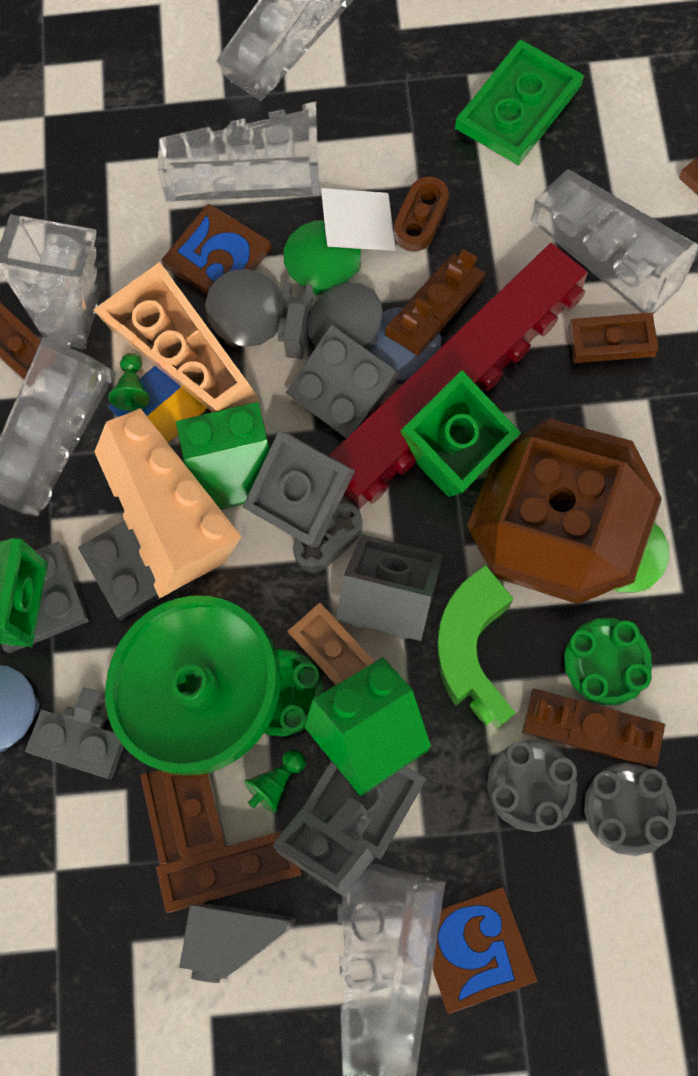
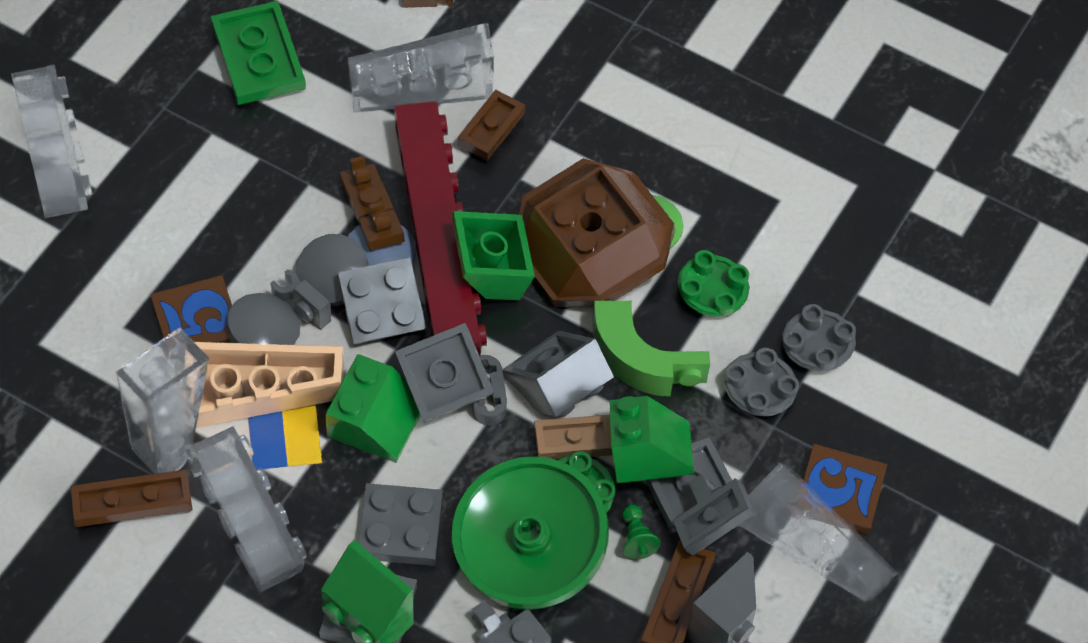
camera: 65 degrees left, 15 degrees down
(129, 392) = (262, 440): green piece -> none
(163, 503) = (376, 464): light nougat wedge -> none
(182, 815) = (615, 604): reddish brown plate -> none
(244, 159) = (145, 242): clear wedge -> none
(314, 263) = (262, 252): green dish -> none
(358, 219) = (256, 210): white sticker -> none
(420, 217) = (293, 171): reddish brown plate -> none
(593, 728) = (750, 325): reddish brown plate -> none

